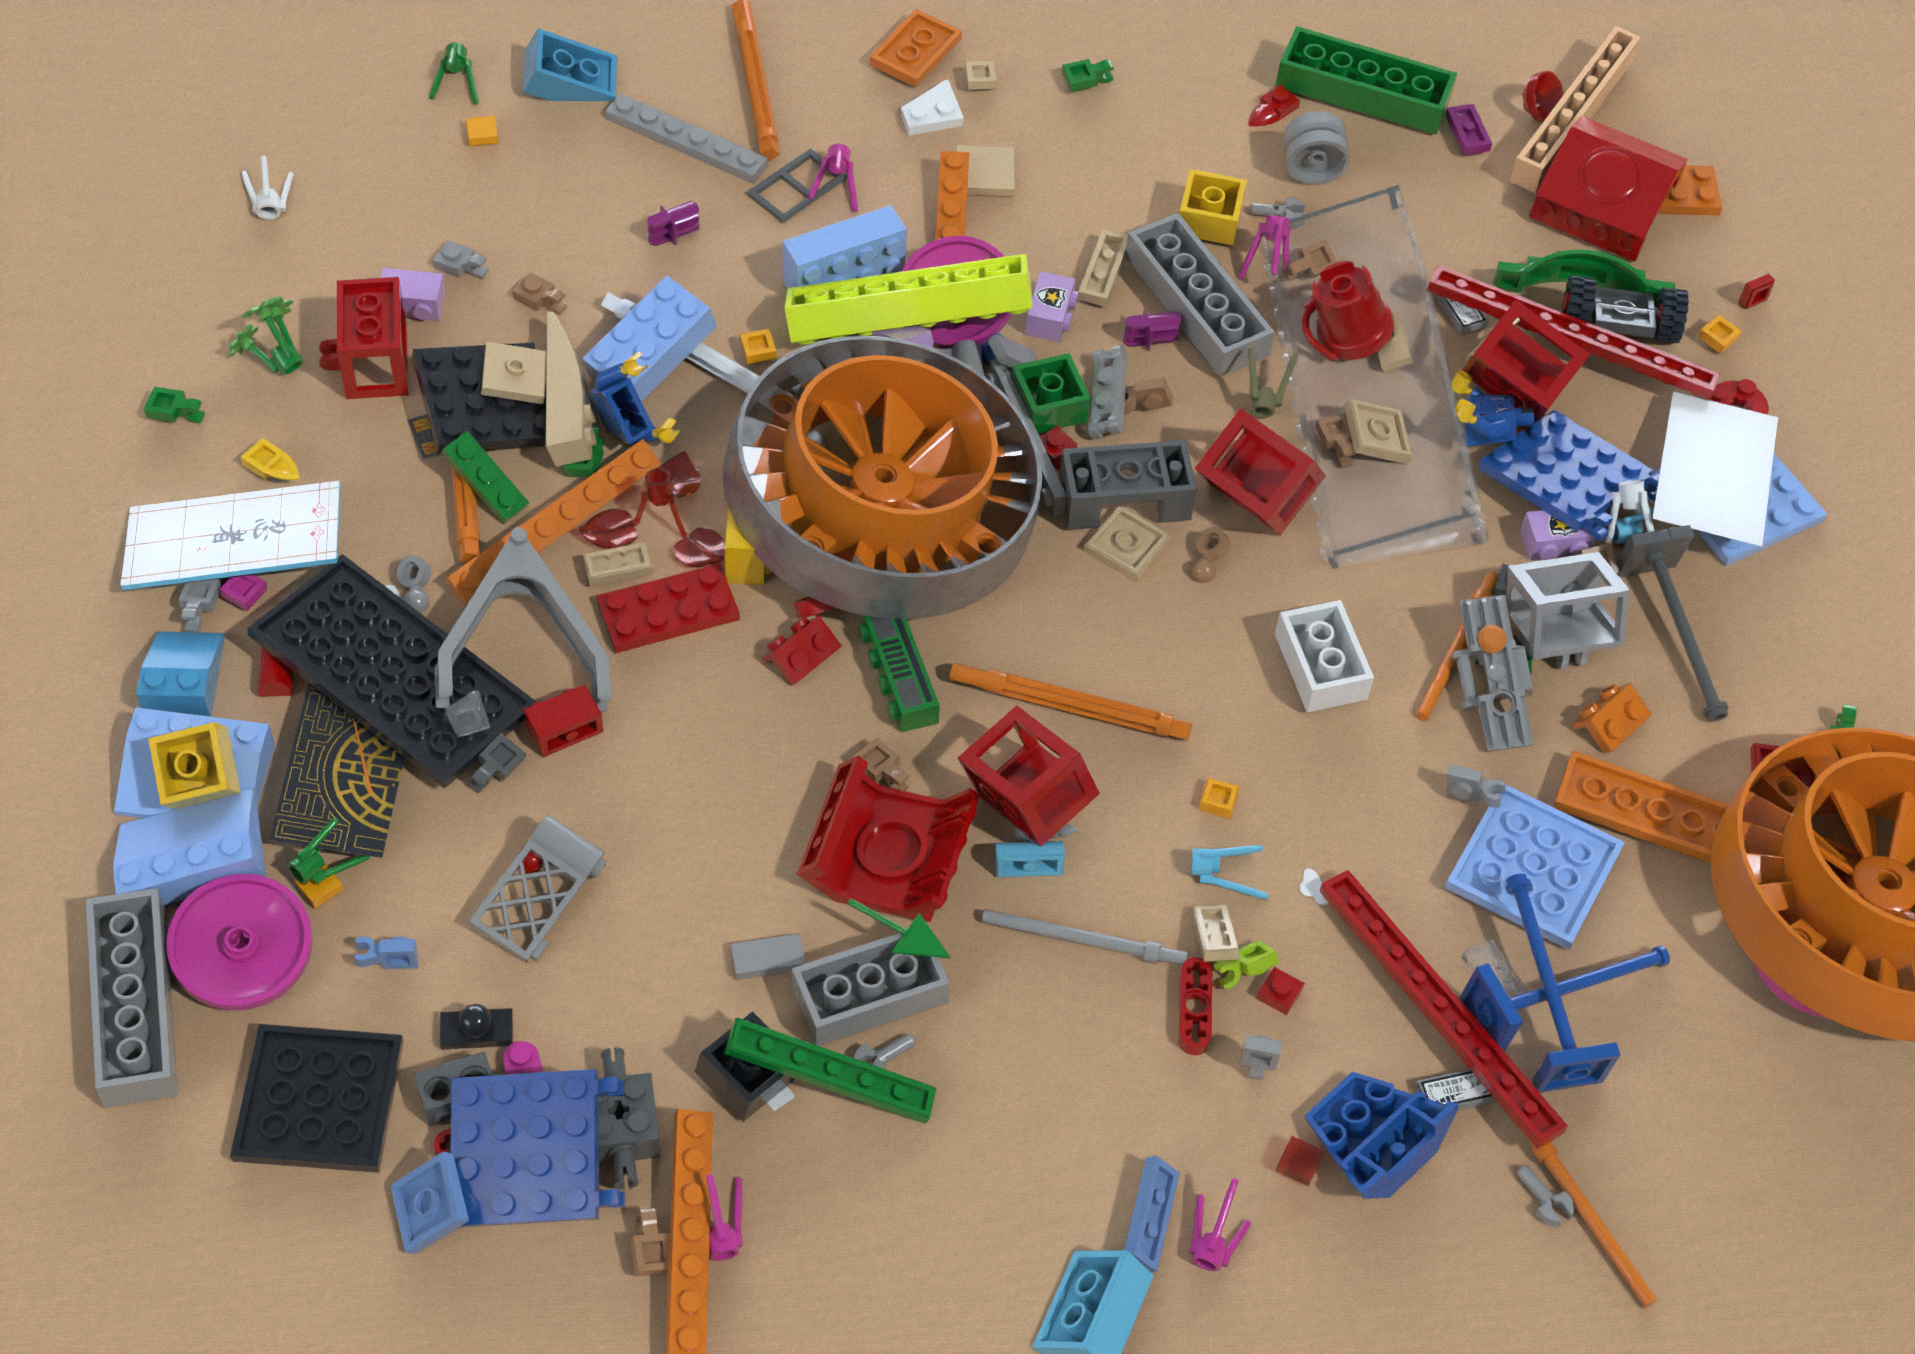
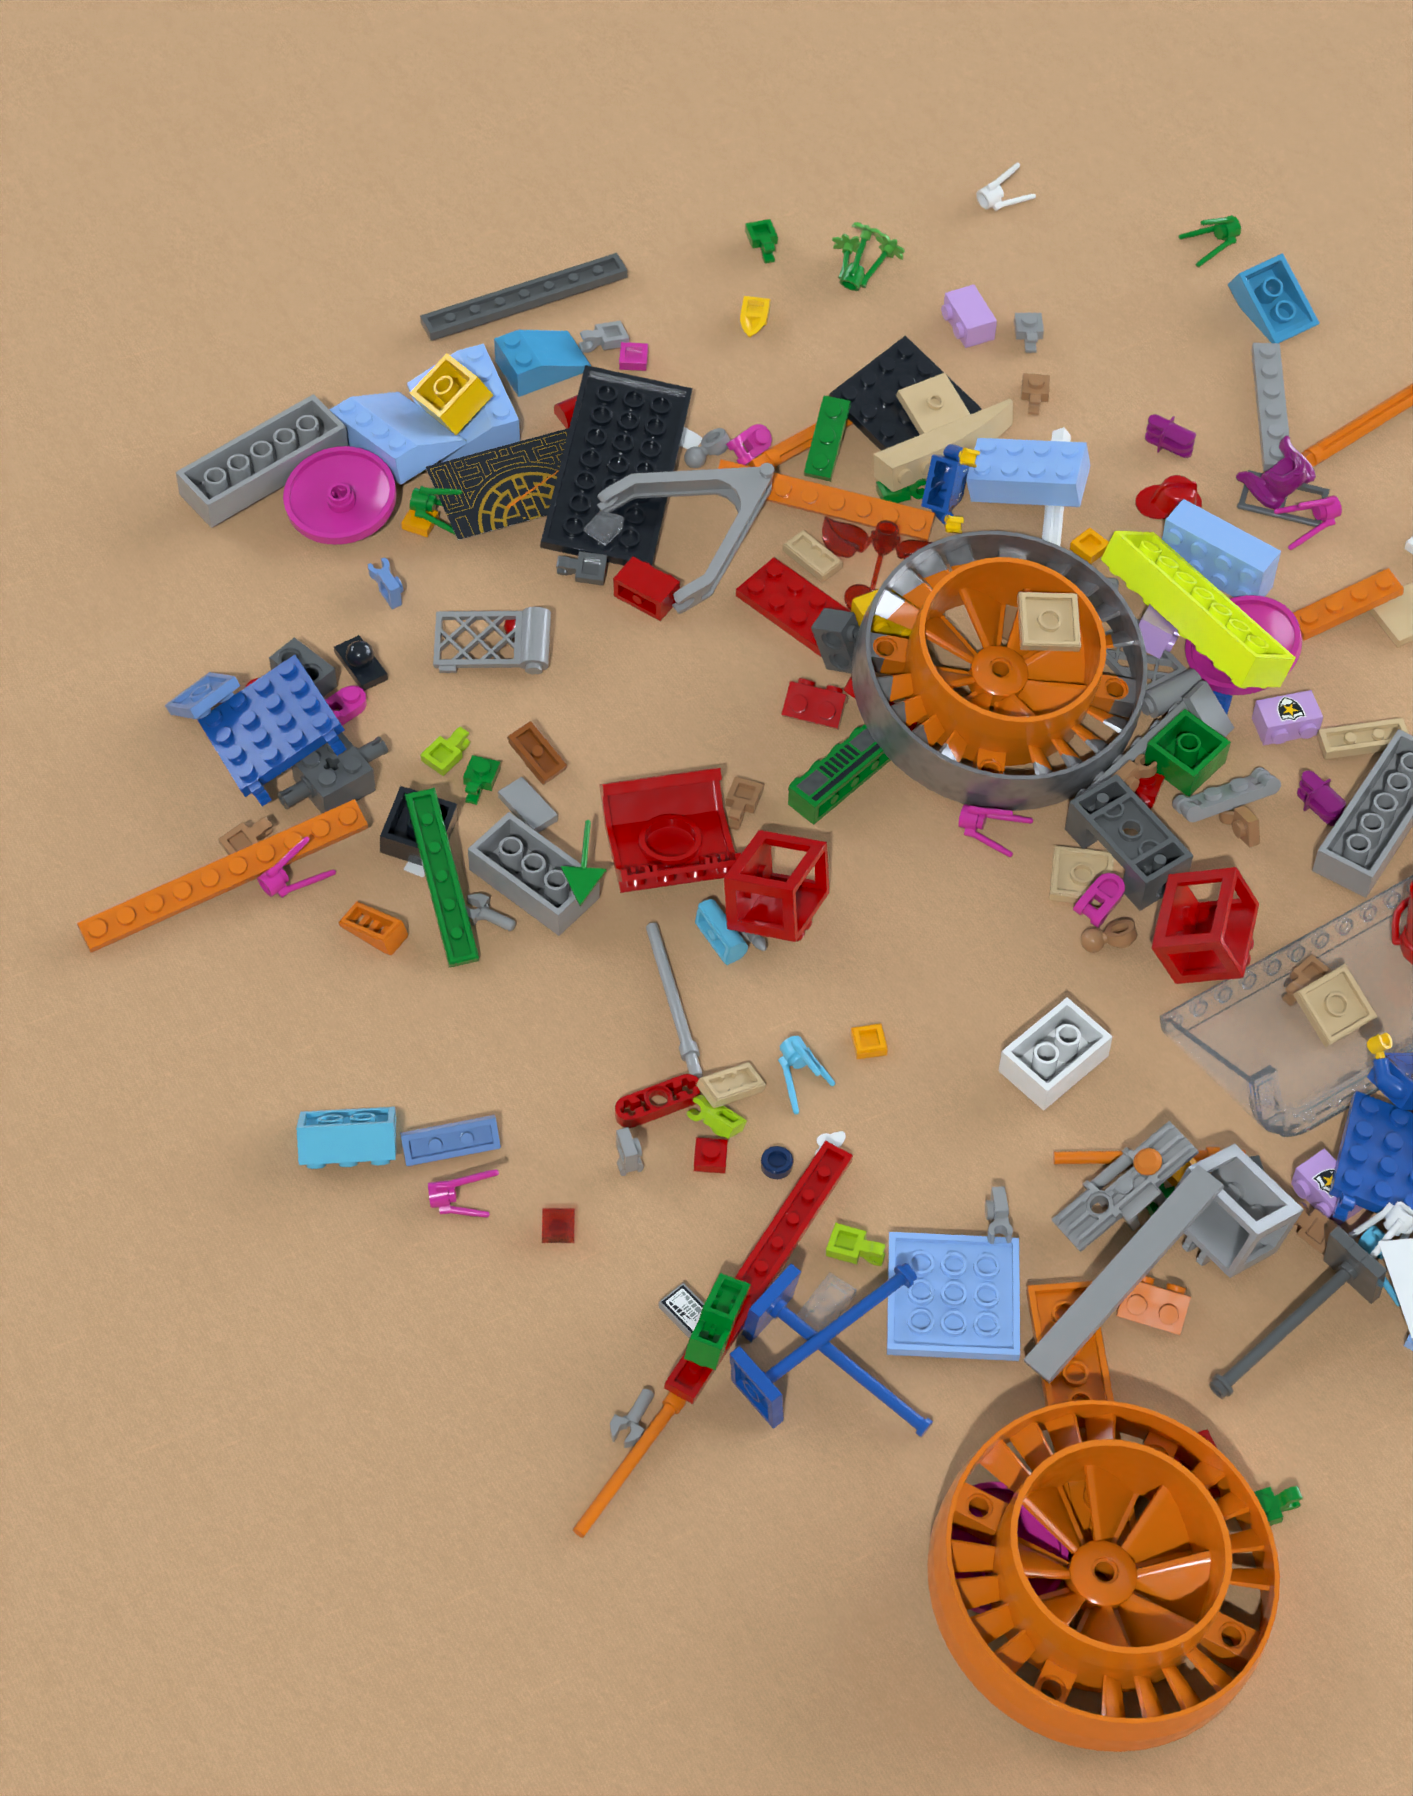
camera: 65 degrees right, 0 degrees up
(80, 649) = (523, 296): none -> dark grey plate
(232, 535) = (671, 325): white piece -> none
(318, 1098) = (252, 600): black plate -> none
(369, 325) = (895, 295): red piece -> none
(439, 545) = (755, 439): none -> dark pink plate
(482, 130) = (1170, 281): light orange tile -> none
(654, 1001) = (445, 754): none -> lime plate
(703, 981) = (479, 775): none -> green plate
(713, 914) = (536, 753): none -> dark orange plate
(740, 263) = (1161, 499): none -> red piece
(755, 585) = (836, 637): none -> dark grey brick
(785, 169) = (1281, 479): none -> magenta hair
(842, 1182) = (387, 940): none -> orange slope
(898, 395) = (1048, 621): none -> tan plate
(1019, 588) = (975, 818): none -> dark pink plant
(1052, 443) = (1133, 771): none -> medium nougat plate
(1072, 701) = (891, 901): orange piece -> none
(1170, 527) = (1107, 890): none -> dark pink plate
(1262, 397) = (1305, 909): olive plant -> none
(1316, 939) = (776, 1162): none -> dark blue tile
(1379, 1132) = (609, 1269): blue wedge -> none
(1443, 920) = (851, 1243): none -> lime plate
(1503, 1061) = (716, 1321): none -> green slope
(1606, 714) = (1123, 1273): none -> light grey tile

